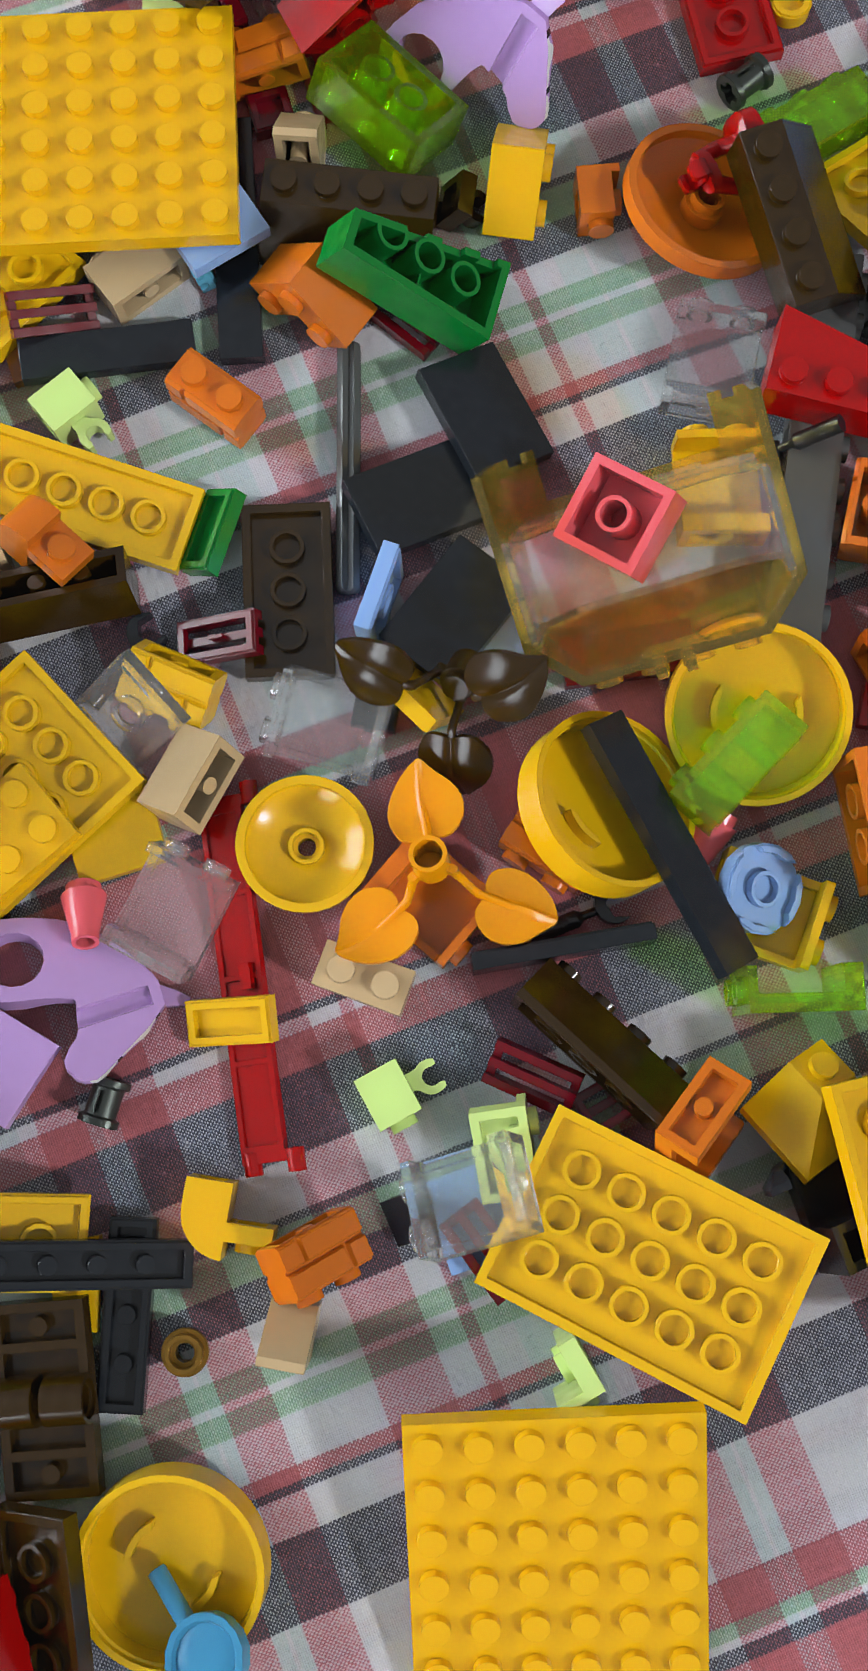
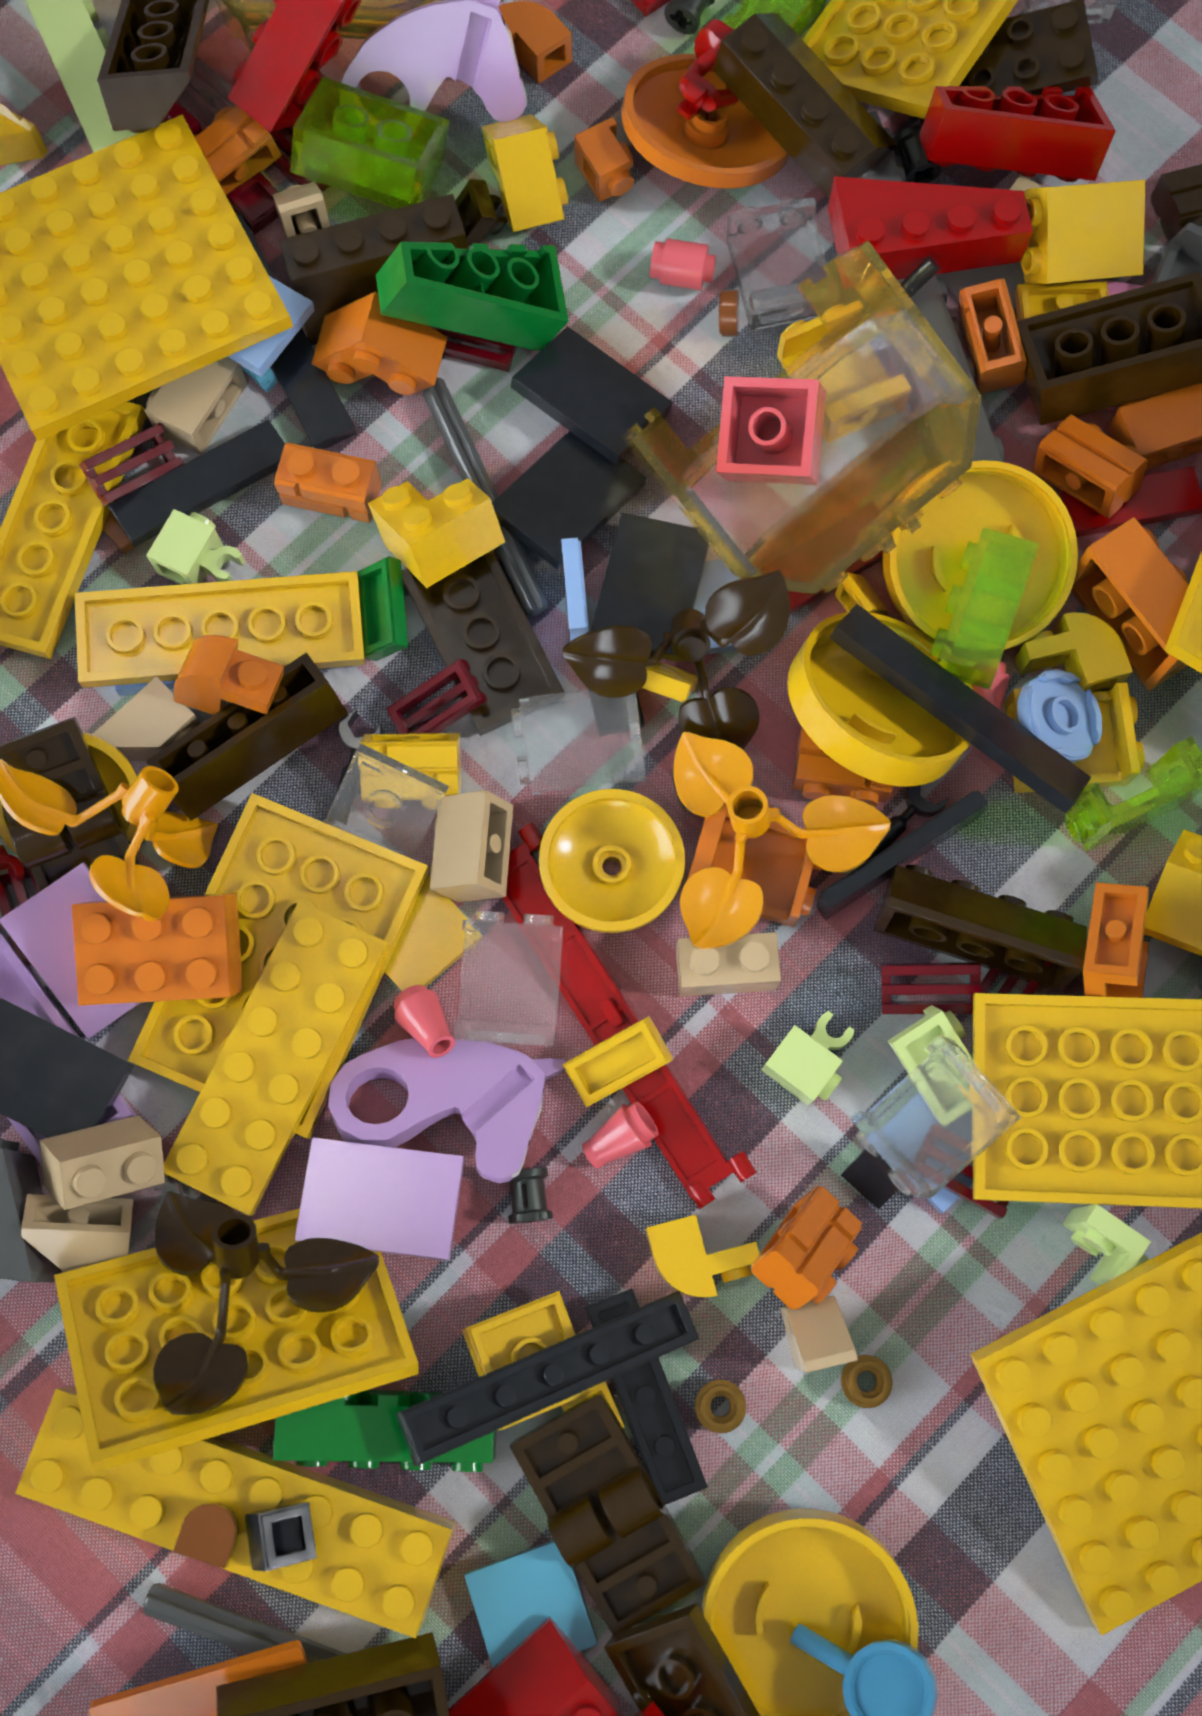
camera: 25 degrees left, 5 degrees down
(208, 1085) = (623, 1134): none -> coral cone
(285, 486) = (439, 533): none -> yellow brick
(314, 1403) = (882, 1385): none -> pearl gold plate
(585, 57) = (539, 38): none -> orange brick
(621, 326) = (682, 264): none -> coral brick
(639, 700) = (858, 591): none -> yellow slope
(642, 390) = (729, 313): none -> dark orange tile
(818, 836) = (1084, 647): none -> yellow brick

